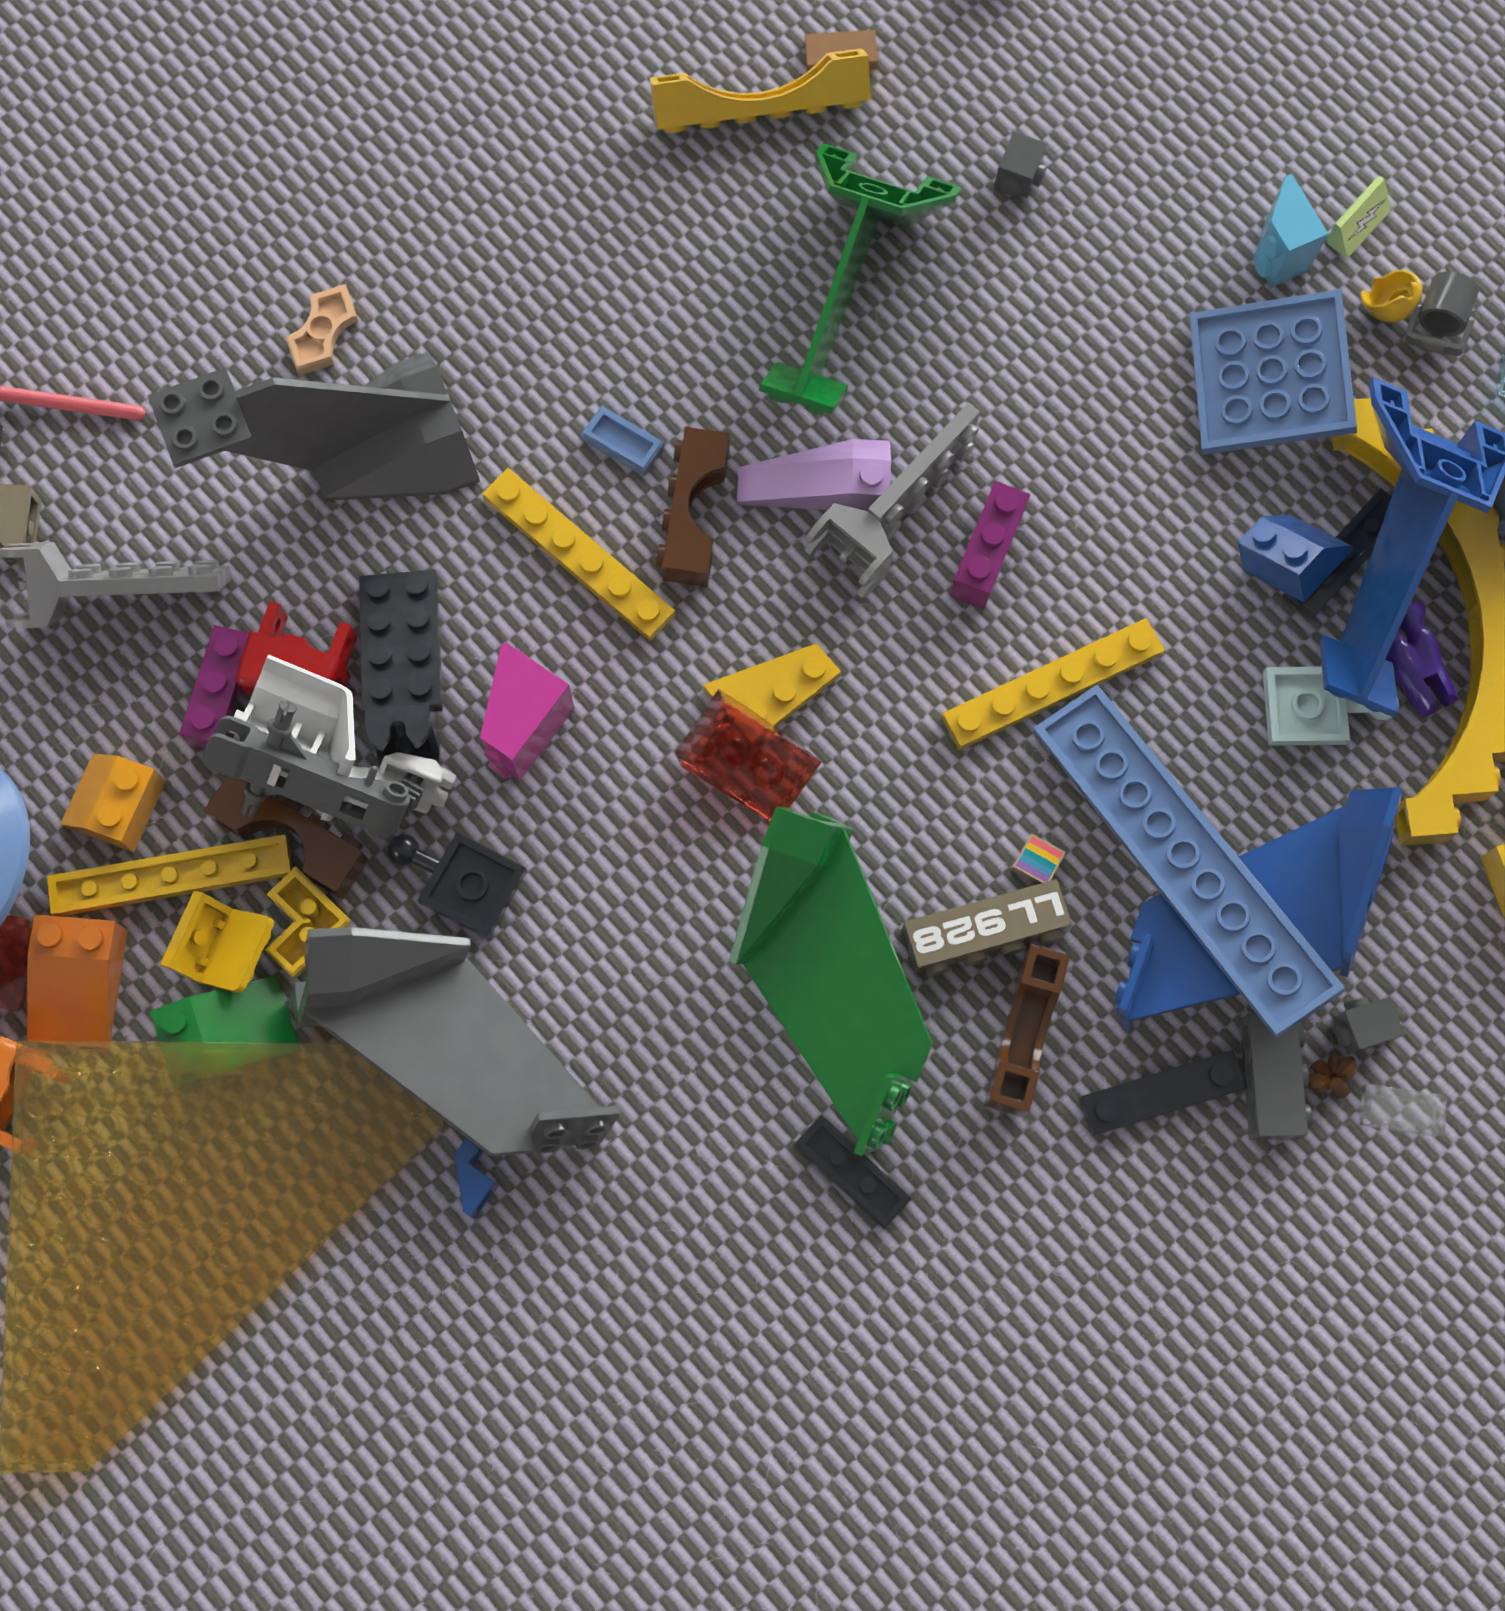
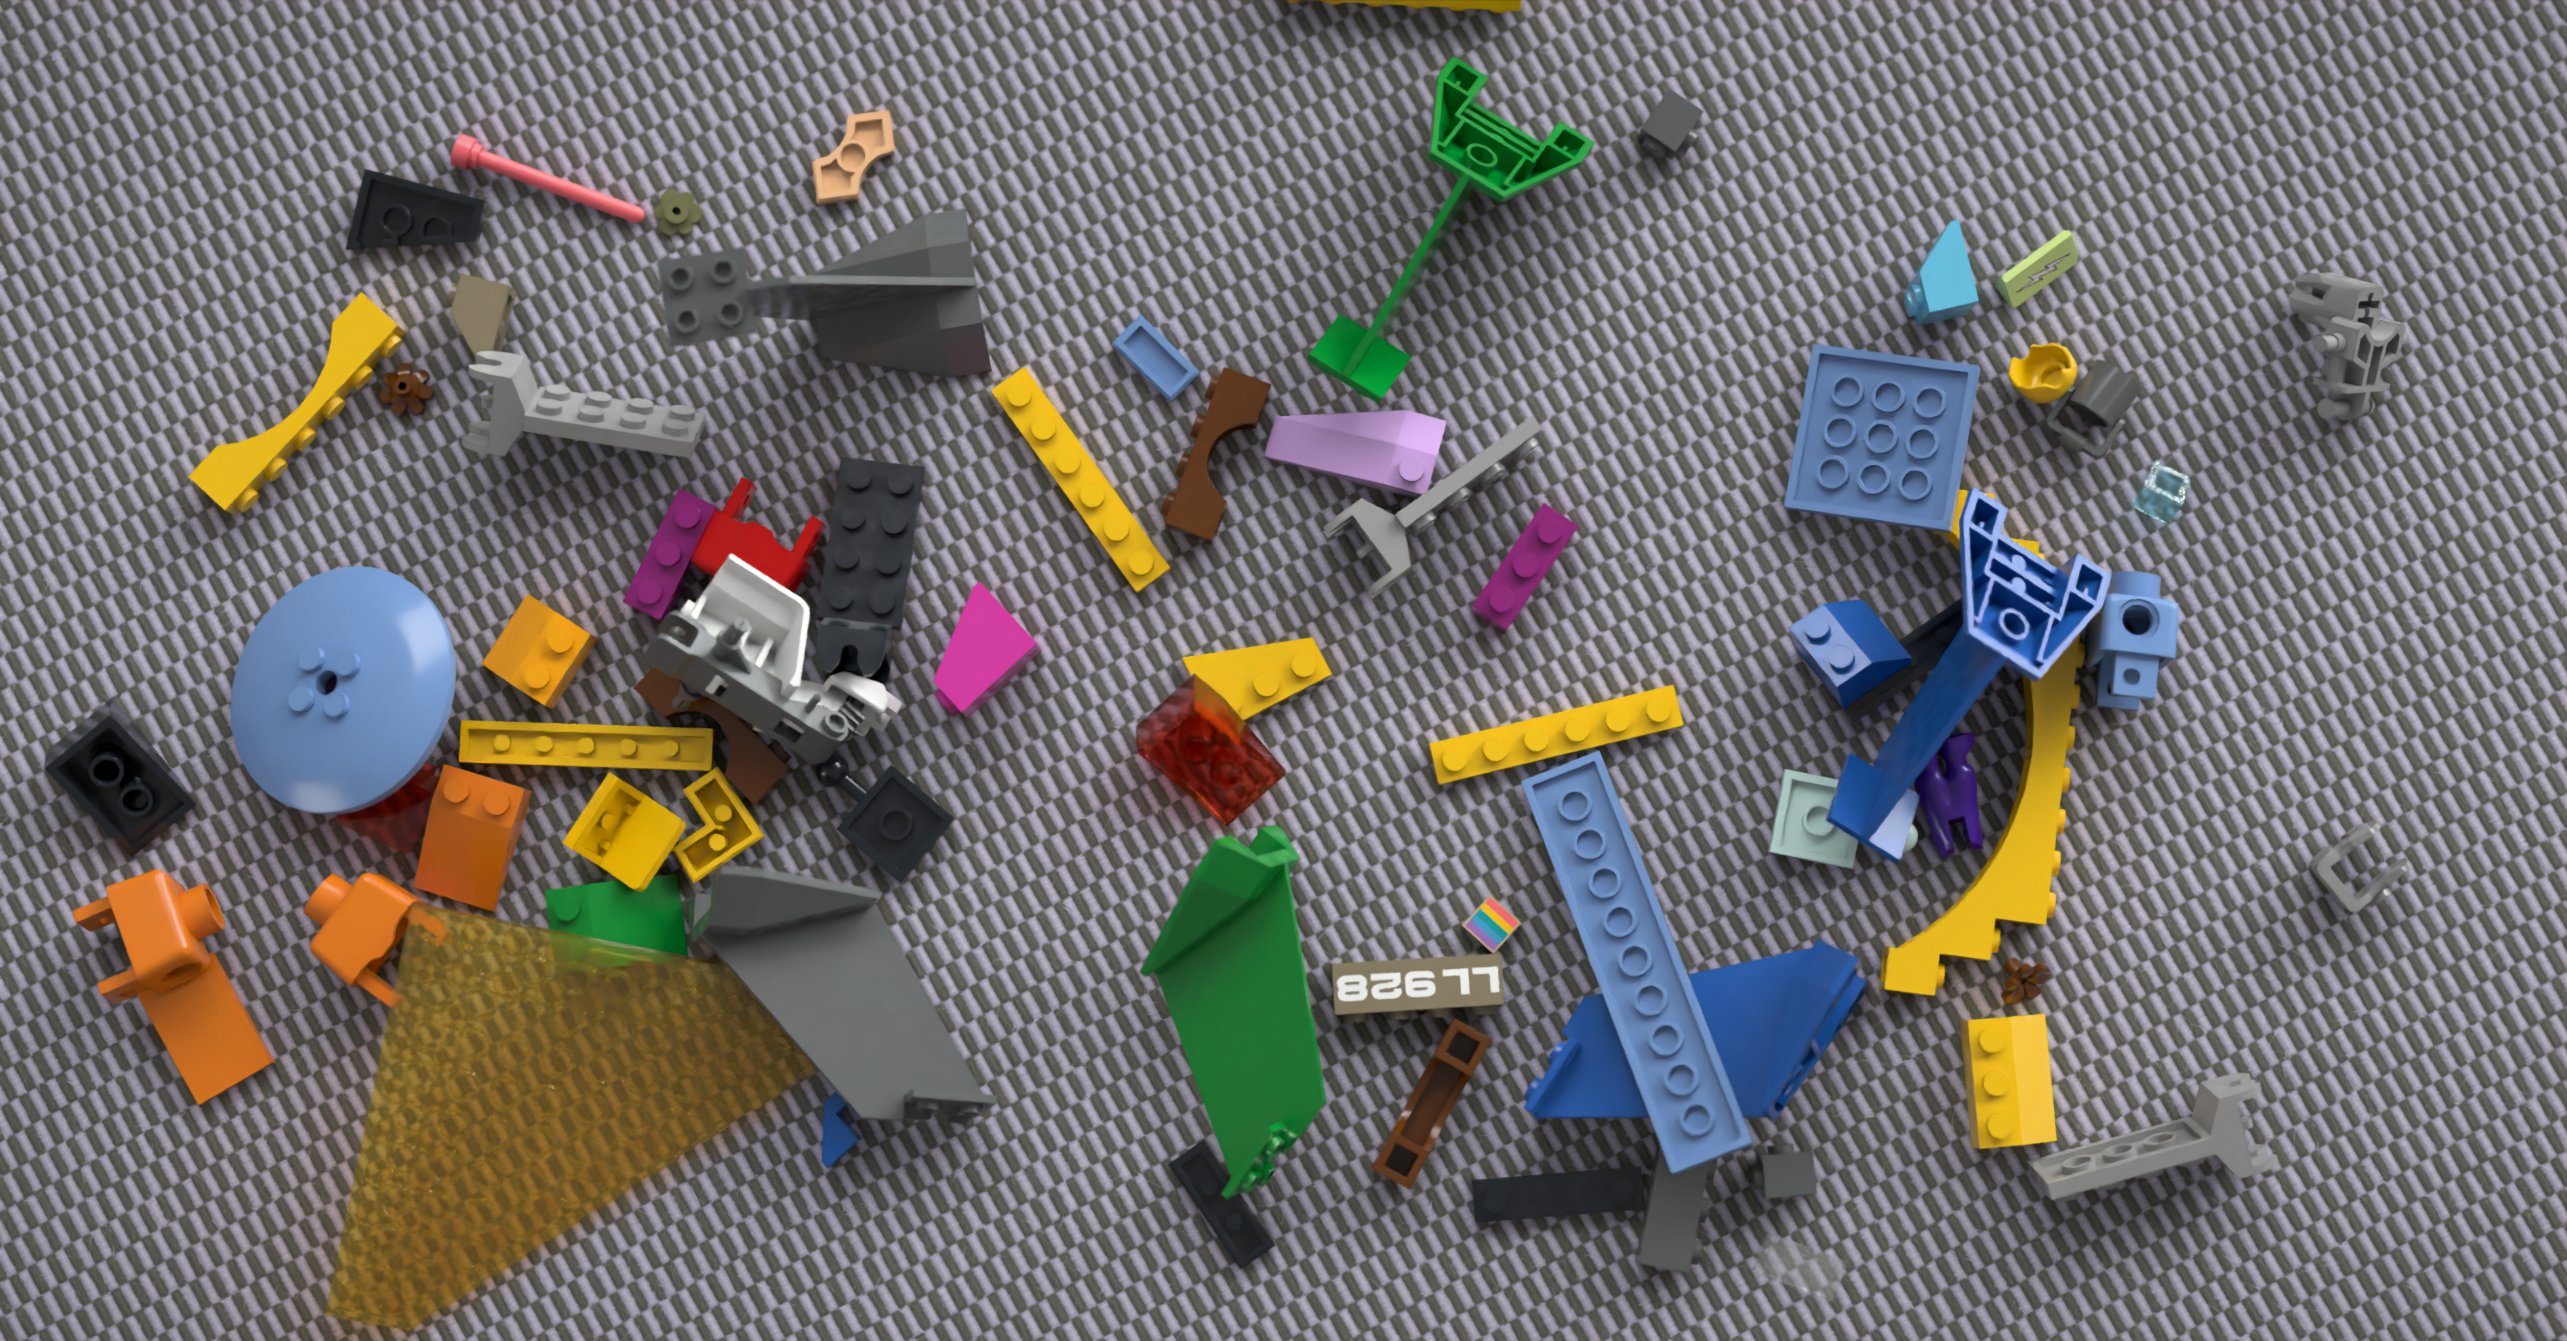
camera: 15 degrees right, 10 degrees up
(1333, 1075) = (1735, 1215): reddish brown plant -> none

